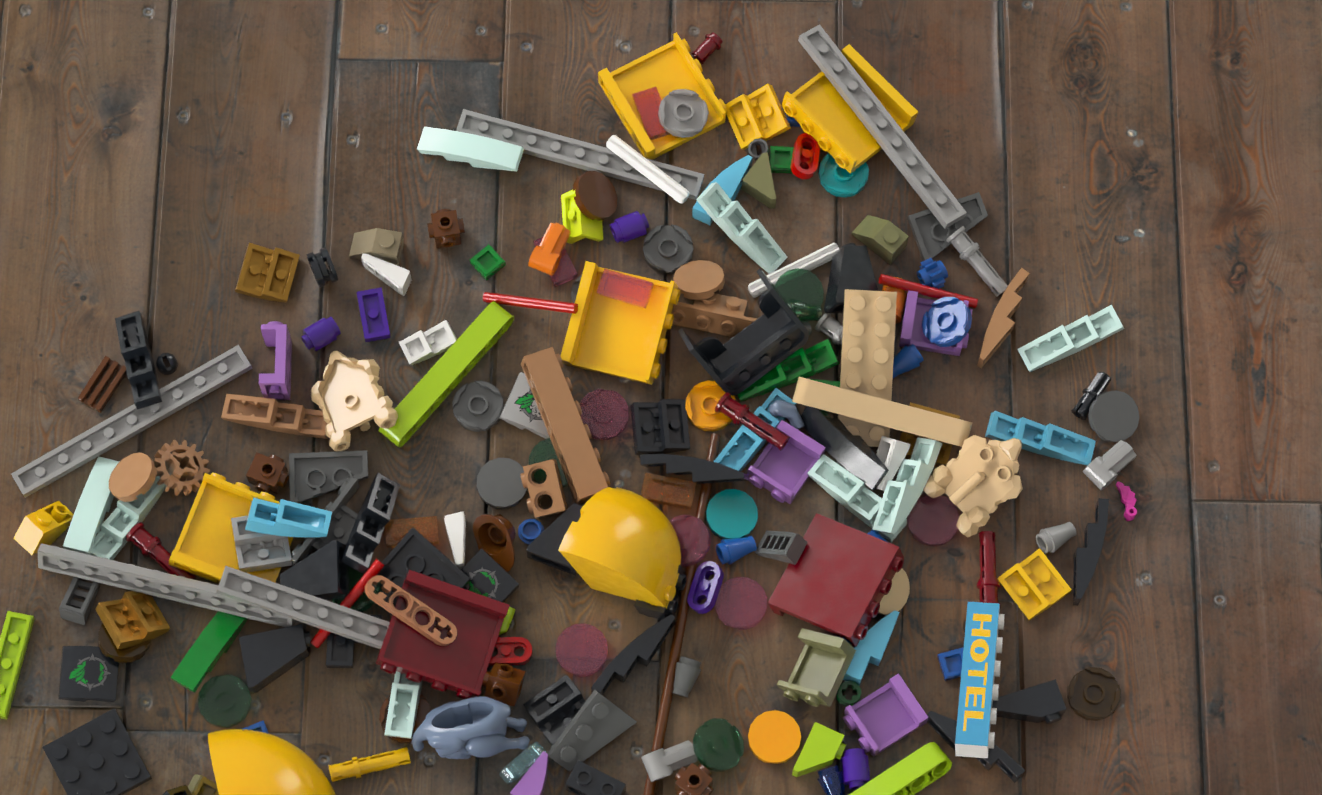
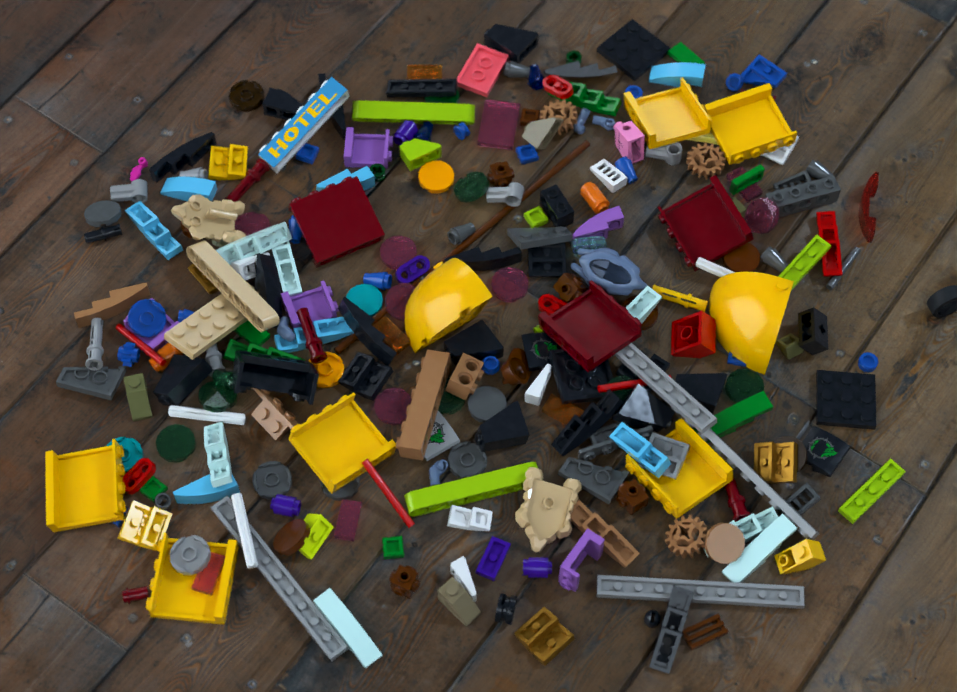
camera: 145 degrees left, 10 degrees down
(320, 720) = (694, 336): none -> red slope
(413, 606) = (602, 343): nougat beam -> none
(460, 456) = (503, 430): none -> black slope
(502, 369) = (436, 471): none -> sand blue arm
(548, 254) = (353, 516): orange piece -> none
(614, 763) = (536, 217): none -> lime tile
(625, 288) = (322, 456): clear pink tile -> none
(699, 279) = (270, 441): medium nougat tile -> none
(759, 182) = (178, 477): olive slope -> none
(785, 549) = (356, 251): dark grey slope -> none
(800, 219) = (175, 443): none -> clear green tile
(818, 668) = (387, 185): olive panel -> none
(882, 126) = (75, 460): light grey plate -> none
(1045, 514) = (184, 187): none -> medium azure slope
(1070, 339) = (84, 271): light aqua slope -> none

